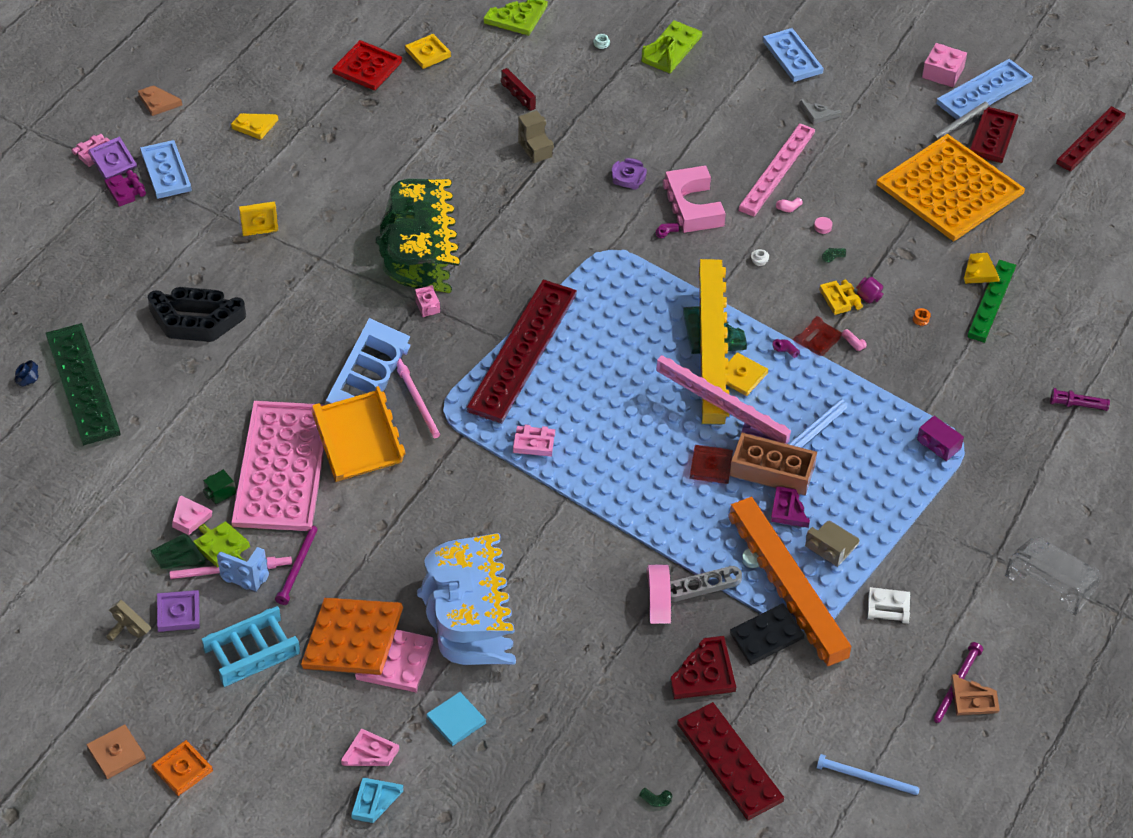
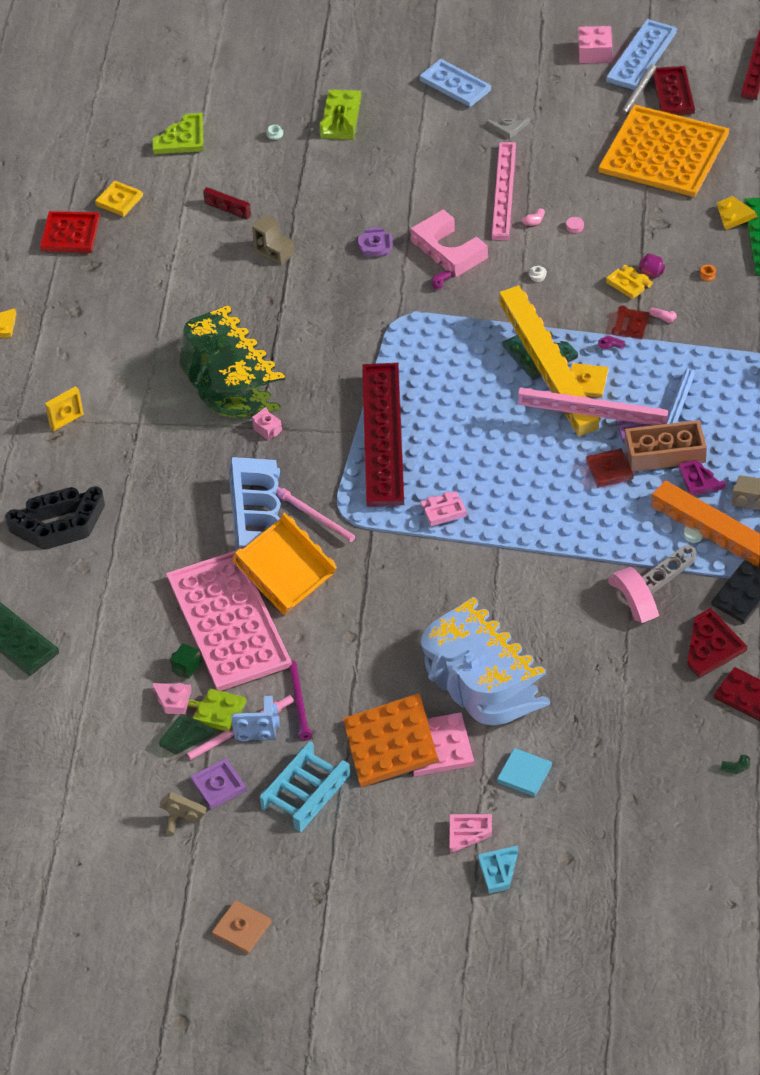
camera: 20 degrees left, 0 degrees up
(182, 767) = (310, 915): orange tile -> none
(831, 253) = (598, 246): clear green arm -> none

